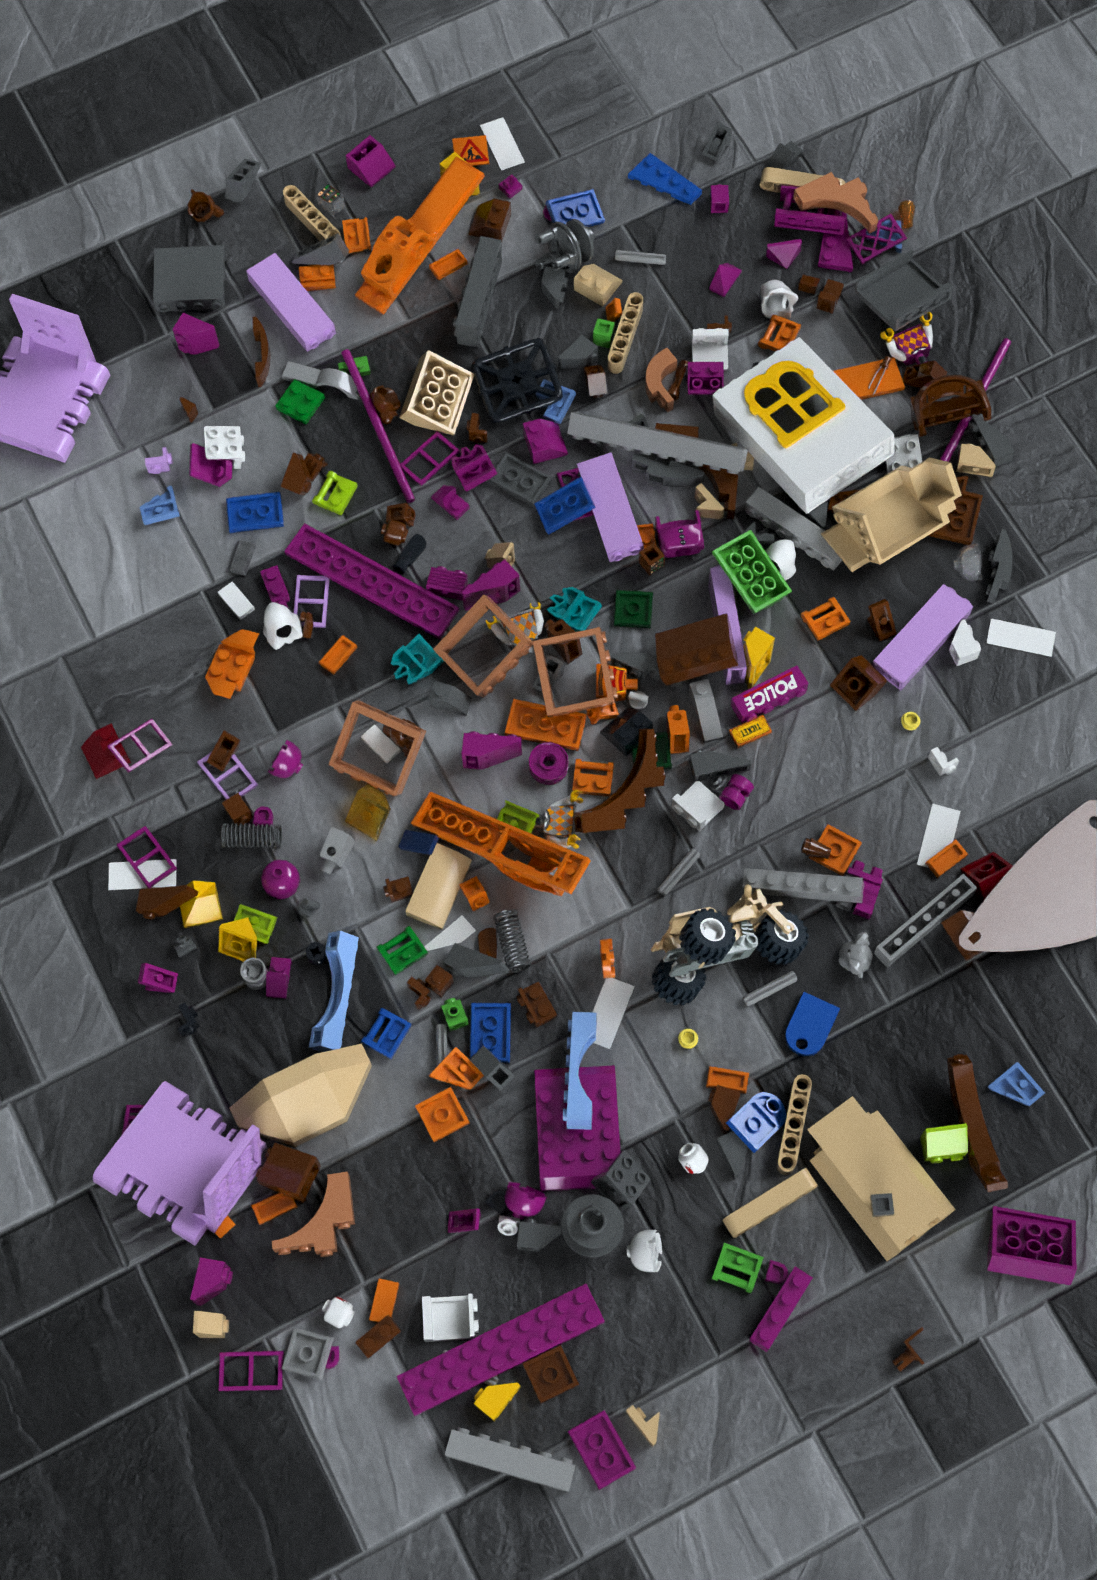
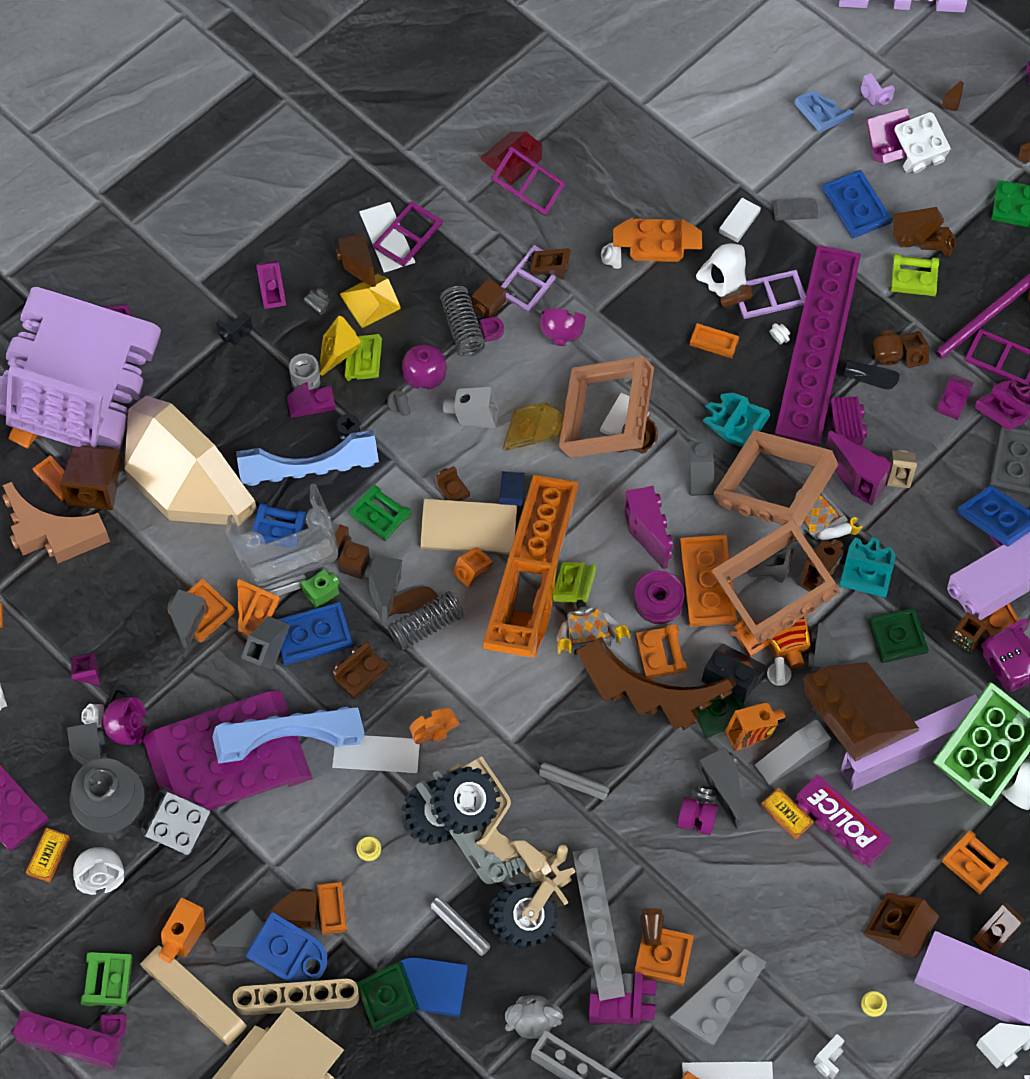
camera: 70 degrees right, 5 degrees down
(231, 706) = (611, 255): none -> white plate
(275, 585) = (771, 254): magenta hinge -> none
(351, 604) = (780, 333): none -> white plate
(420, 1026) = (290, 555): none -> clear windscreen
(448, 1125) = (186, 614): none -> dark grey slope
(455, 933) = (416, 560): white sticker -> none
(617, 1291) = (48, 855): none -> tile
(693, 1158) = (221, 891): white head -> none
(697, 805) = (664, 777): white bracket -> none
(714, 1192) = (182, 930): none -> orange torso
(758, 654) = (878, 783): yellow slope -> none
(812, 1055) = (387, 995): none -> dark green tile
(882, 828) = (719, 999): none -> light grey wing

